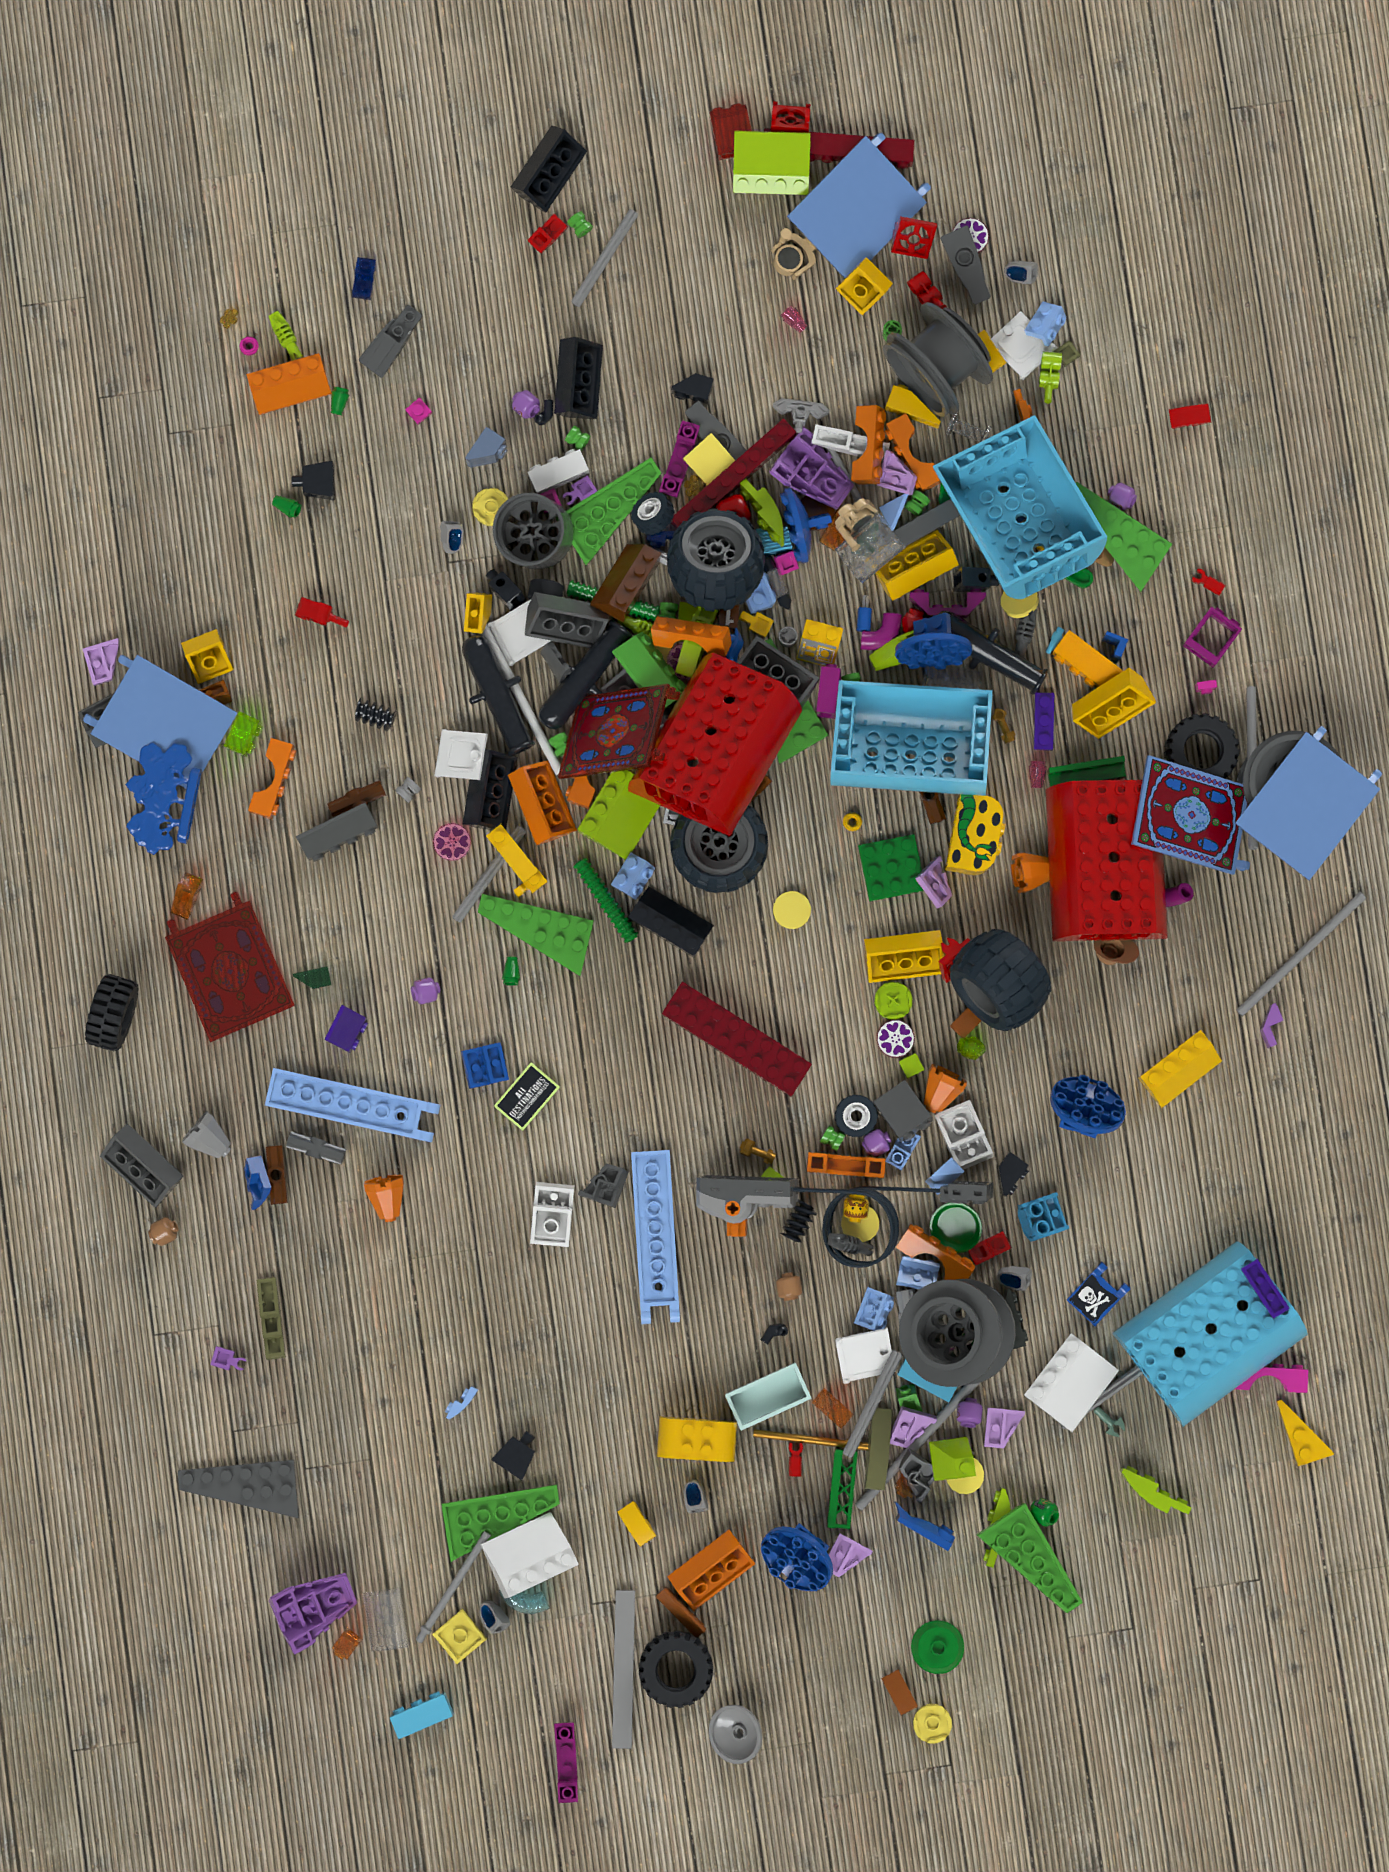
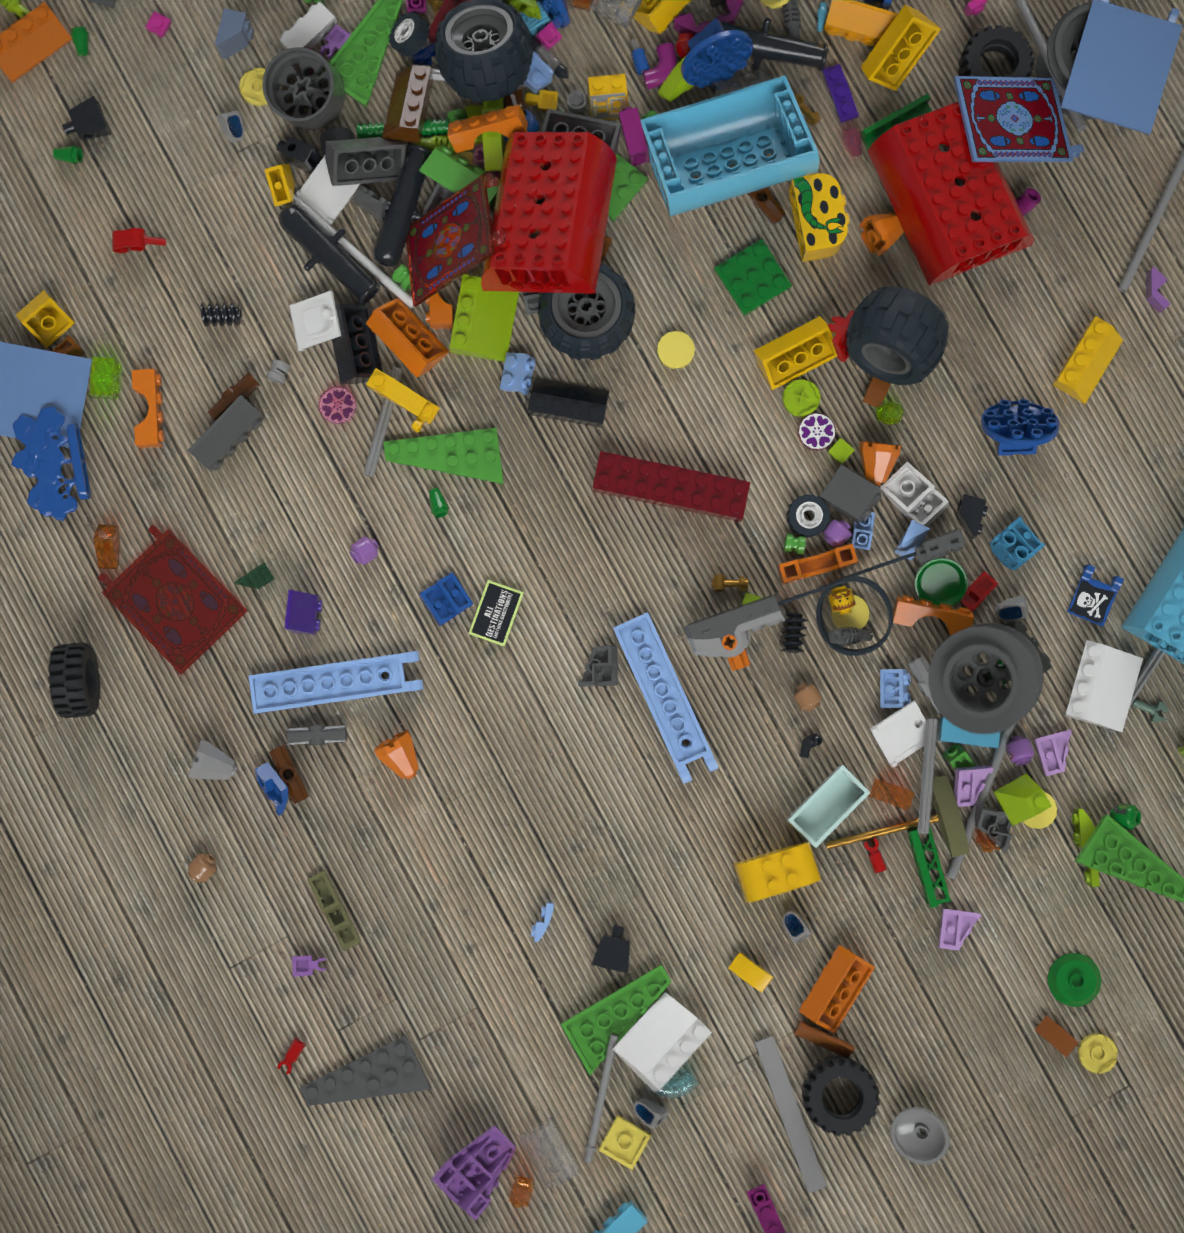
camera: 20 degrees left, 0 degrees up
(141, 1165) = (158, 813): dark grey slope -> none
(182, 1437) = (292, 1054): none -> red bar
(552, 1214) = (561, 713): white slope -> none
(606, 901) = (500, 404): green piece -> none
(798, 1556) = (916, 946): blue bracket -> none
(852, 815) = (700, 243): yellow plate -> none
(917, 1272) = (921, 639): light blue bracket -> none
(935, 883) = (798, 275): lavender wing -> none
(941, 1535) = (1038, 875): blue slope -> none
(1116, 951) = (987, 275): medium nougat piece -> none

